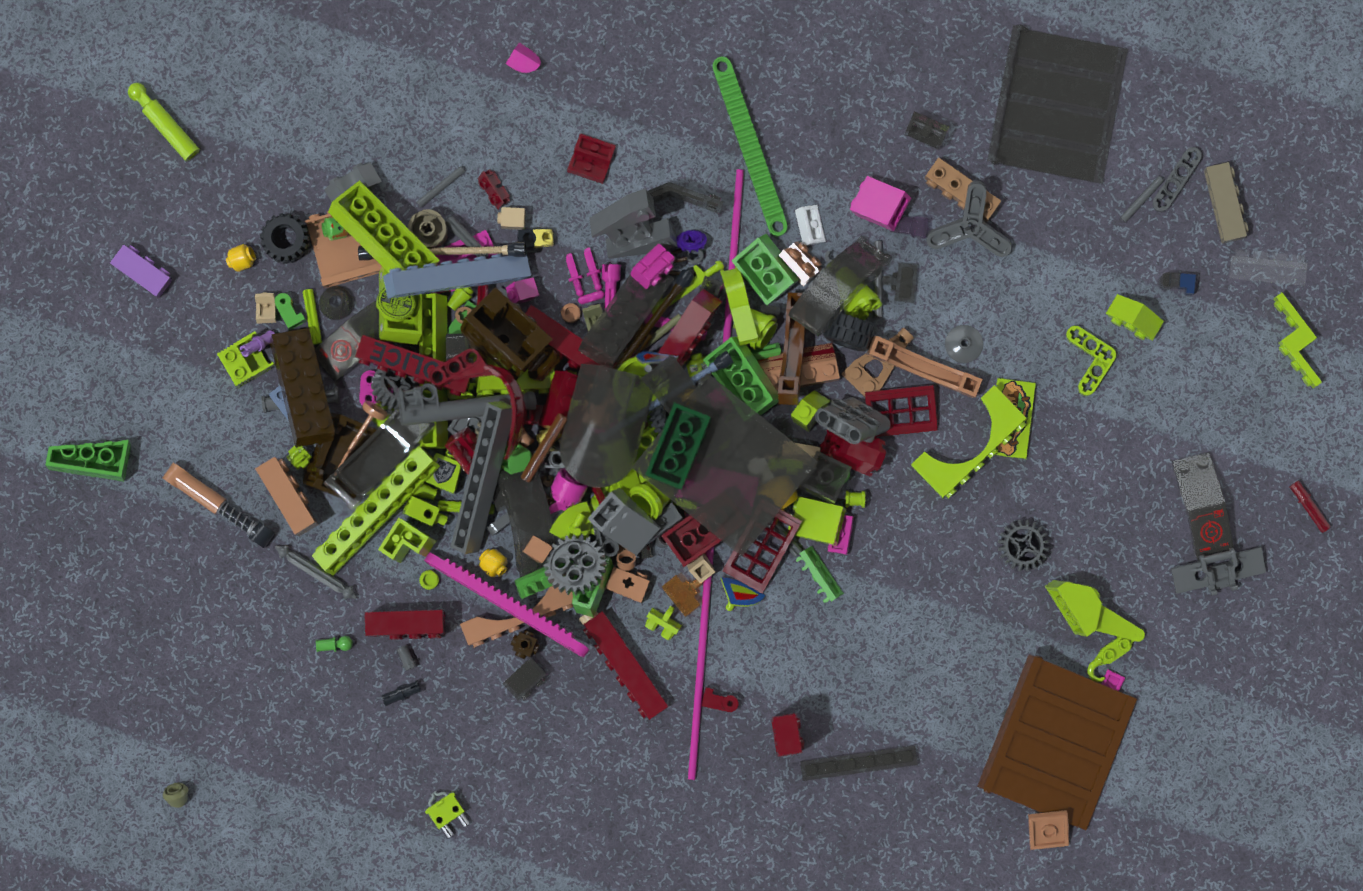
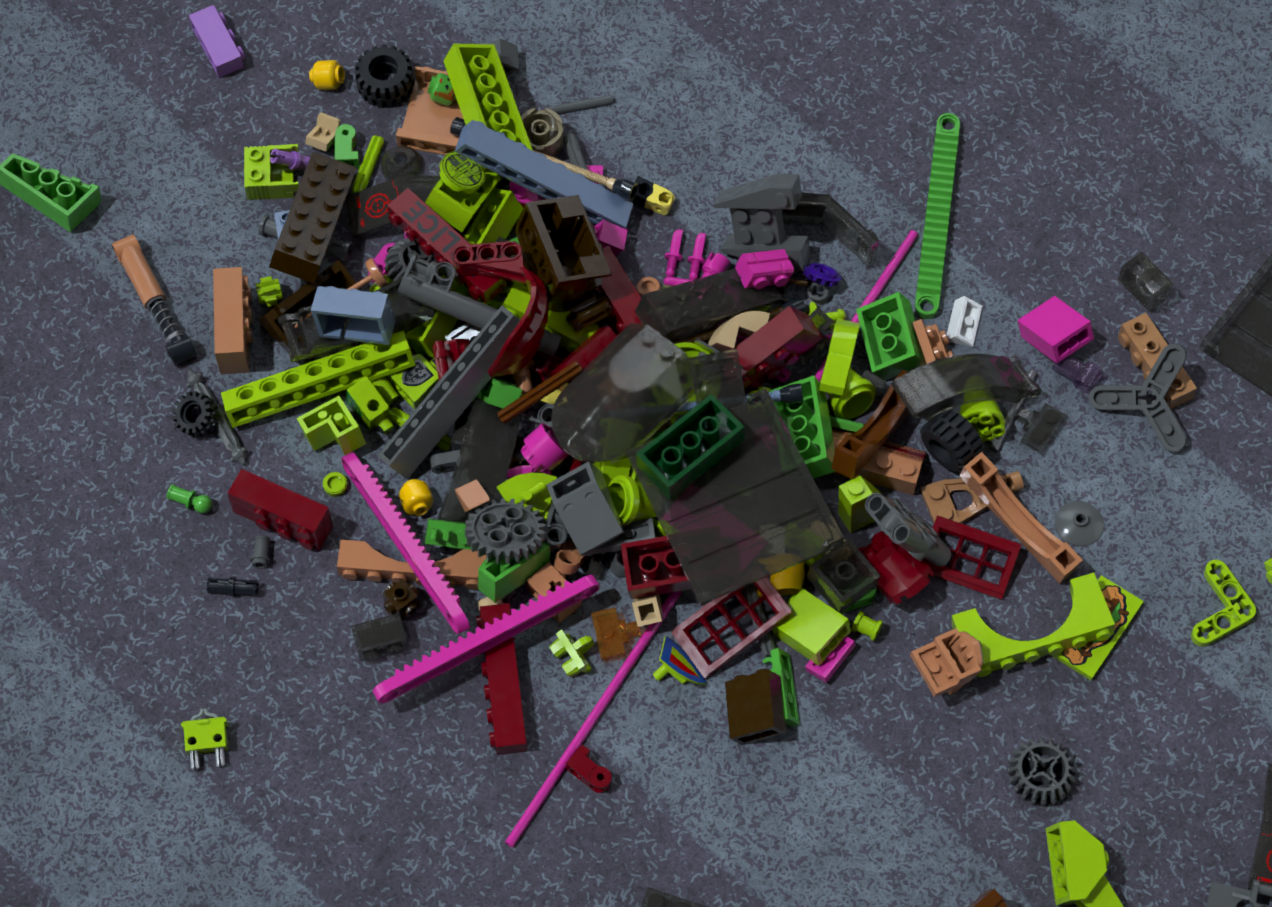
camera: 25 degrees right, 20 degrees down
(294, 587) = (183, 411): none -> black tyre
(384, 456) = (369, 314): none -> sand blue piece
(497, 196) = (633, 122): dark red hinge -> none
(512, 218) = (637, 164): tan brick -> none
(523, 59) = (735, 24): dark pink brick -> none
(591, 158) = (756, 150): dark red slope -> none
(604, 645) = (485, 638): none -> dark pink gear
(651, 332) = (742, 325): none -> tan brick
(787, 735) = (647, 835): dark red brick -> none
(809, 600) = (755, 707): none -> dark brown brick
(926, 503) = (949, 661): none -> nougat piece

